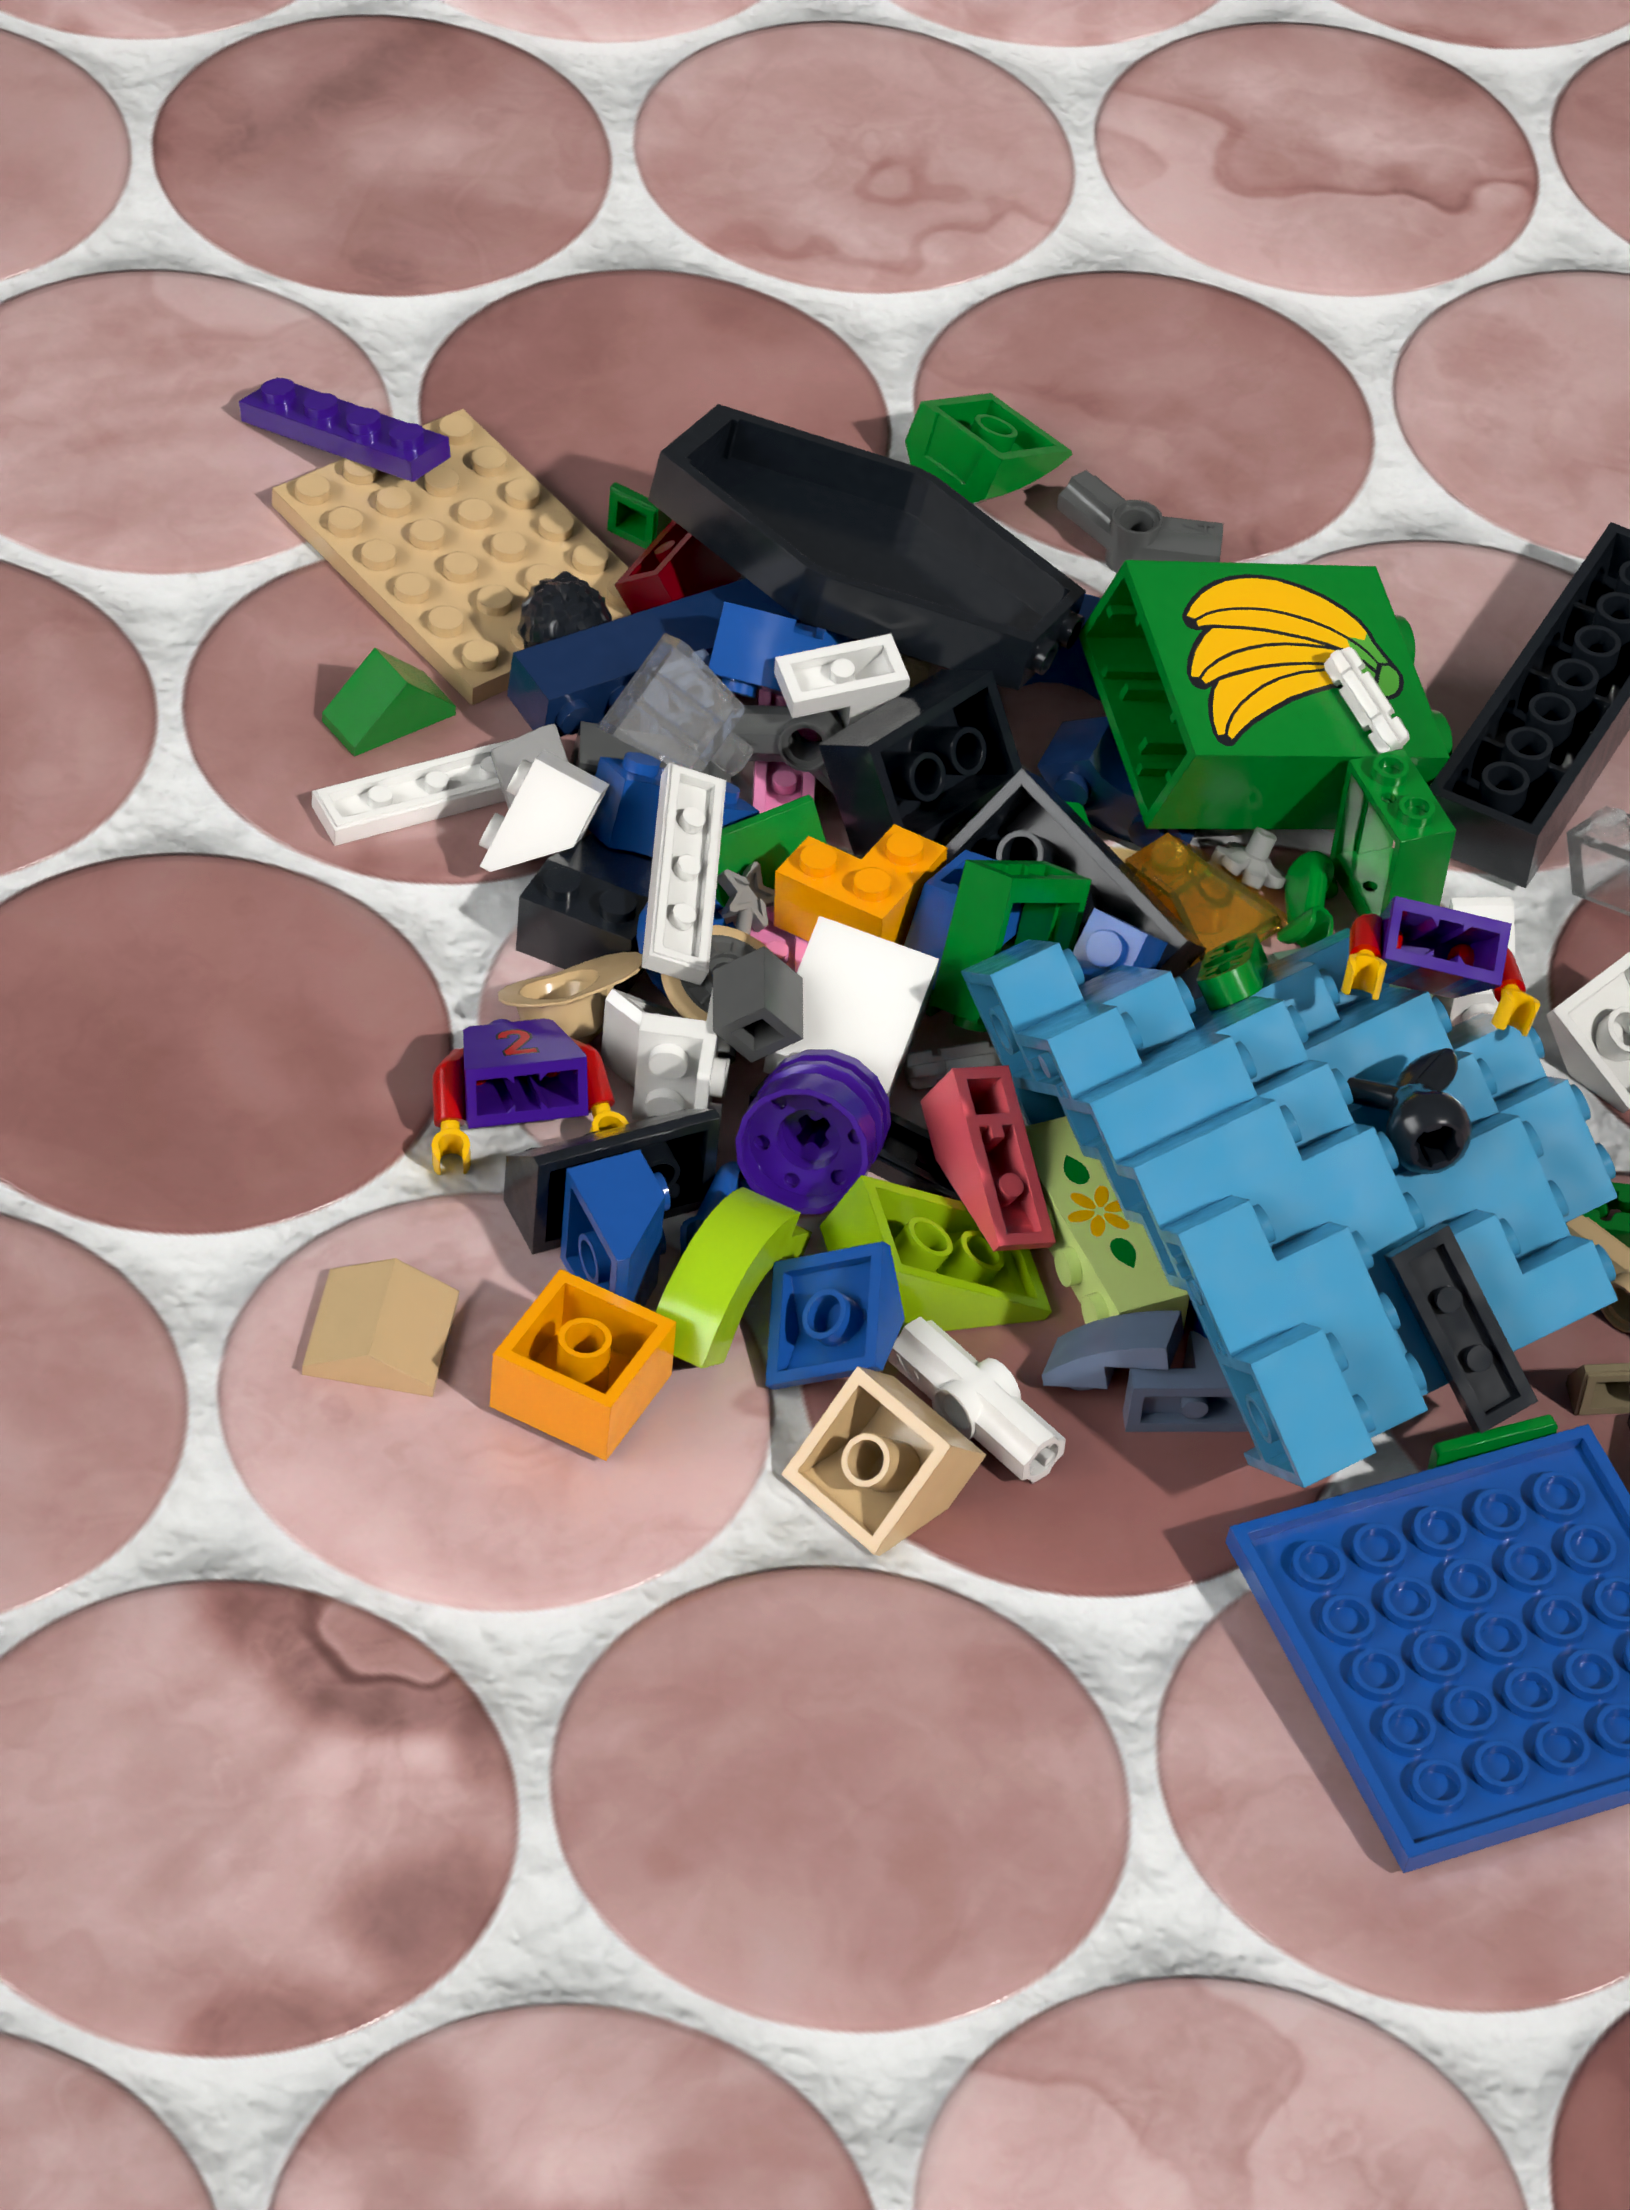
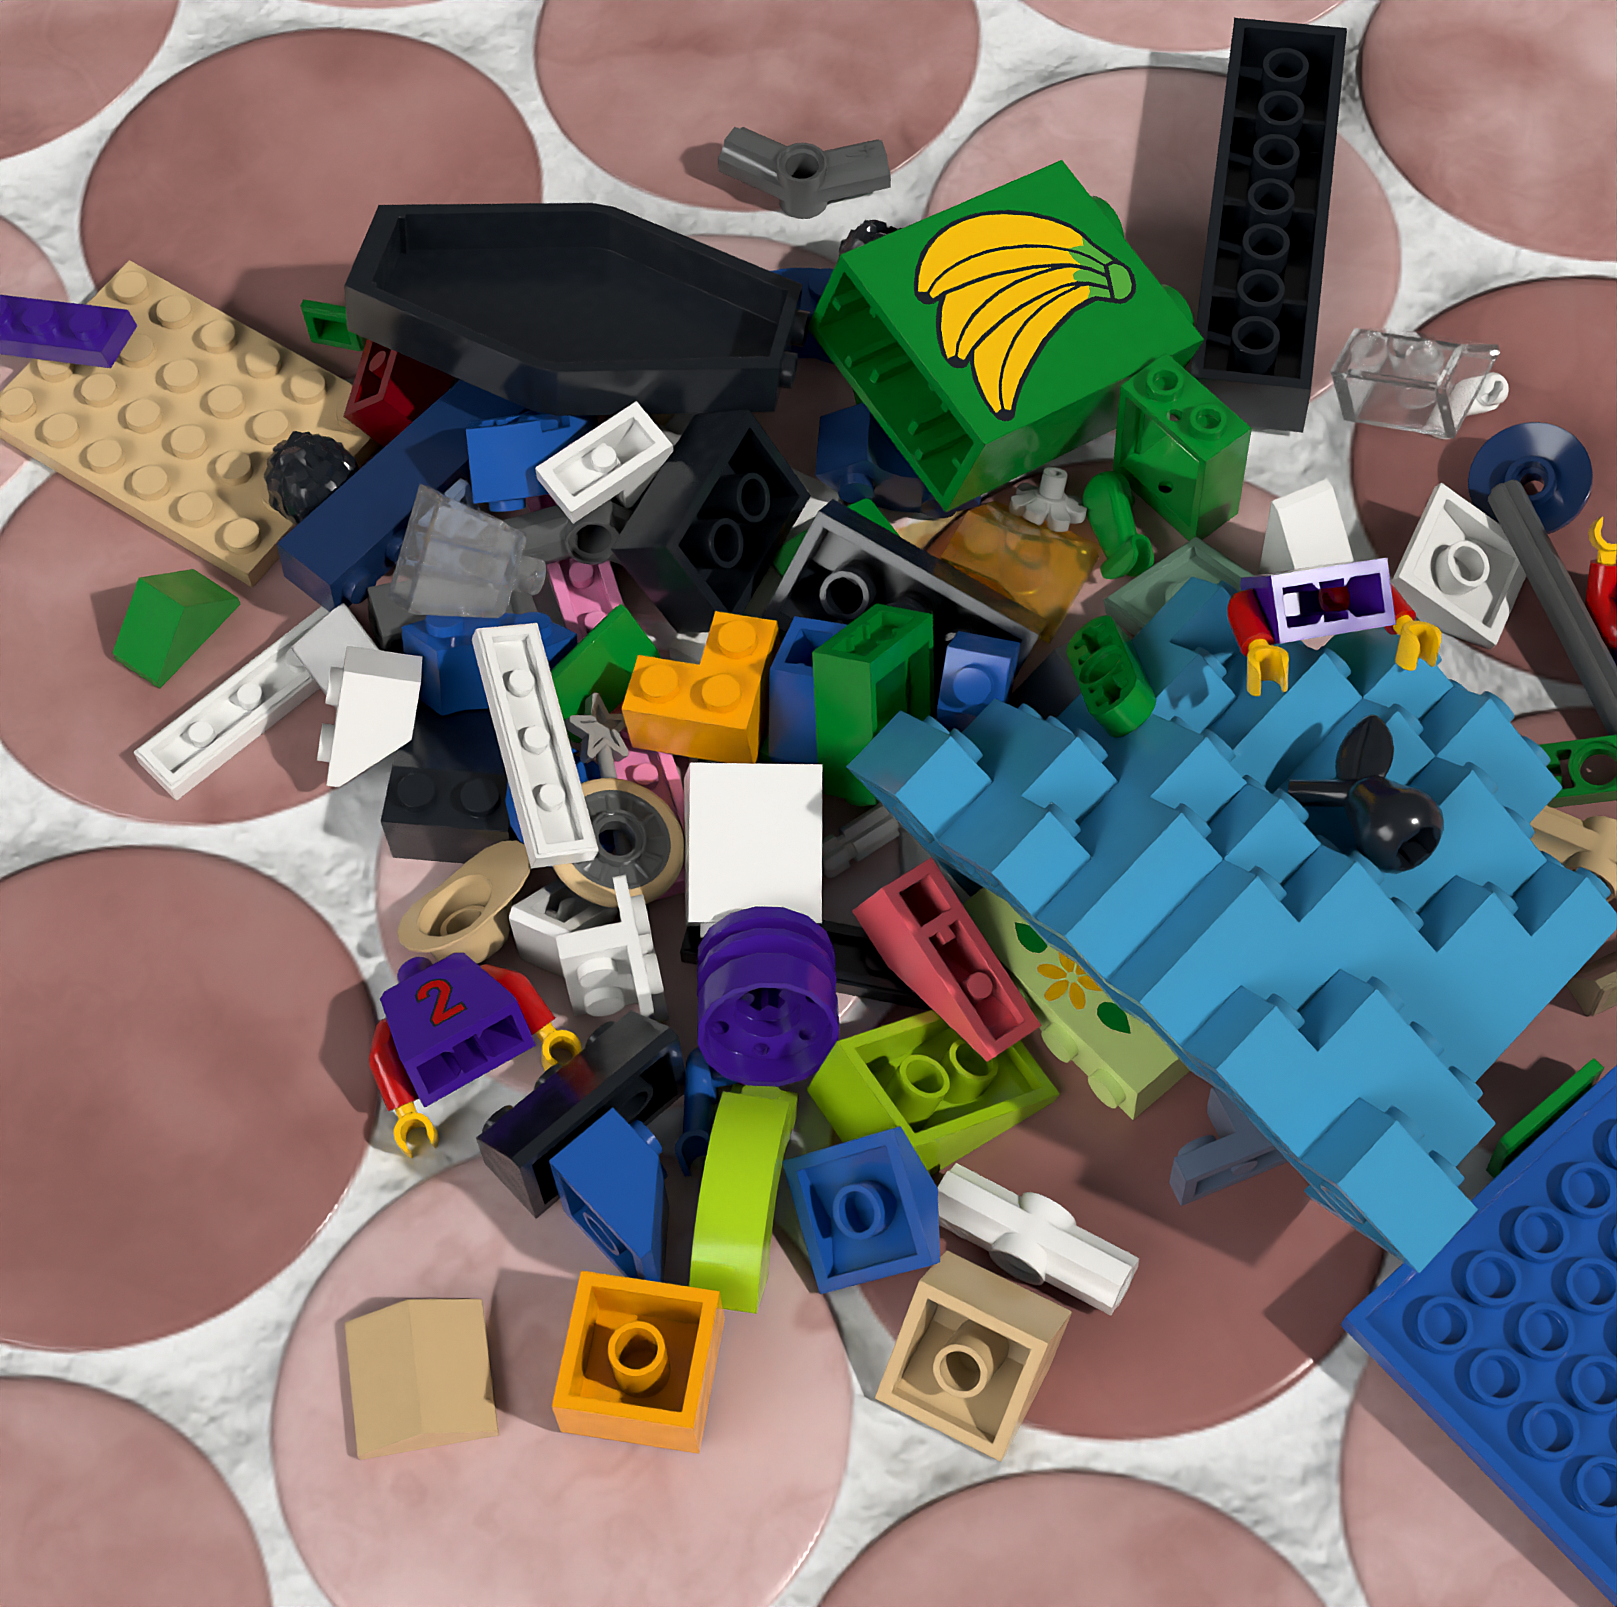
camera: 10 degrees left, 15 degrees up
(757, 1004) = (665, 884): dark grey brick -> none
(981, 446) = (626, 133): green slope -> none
(1092, 1352) = (1144, 1129): sand blue slope -> none
(1366, 700) = (1114, 315): white axle -> none
(1460, 1328) = (1494, 1019): black plate -> none

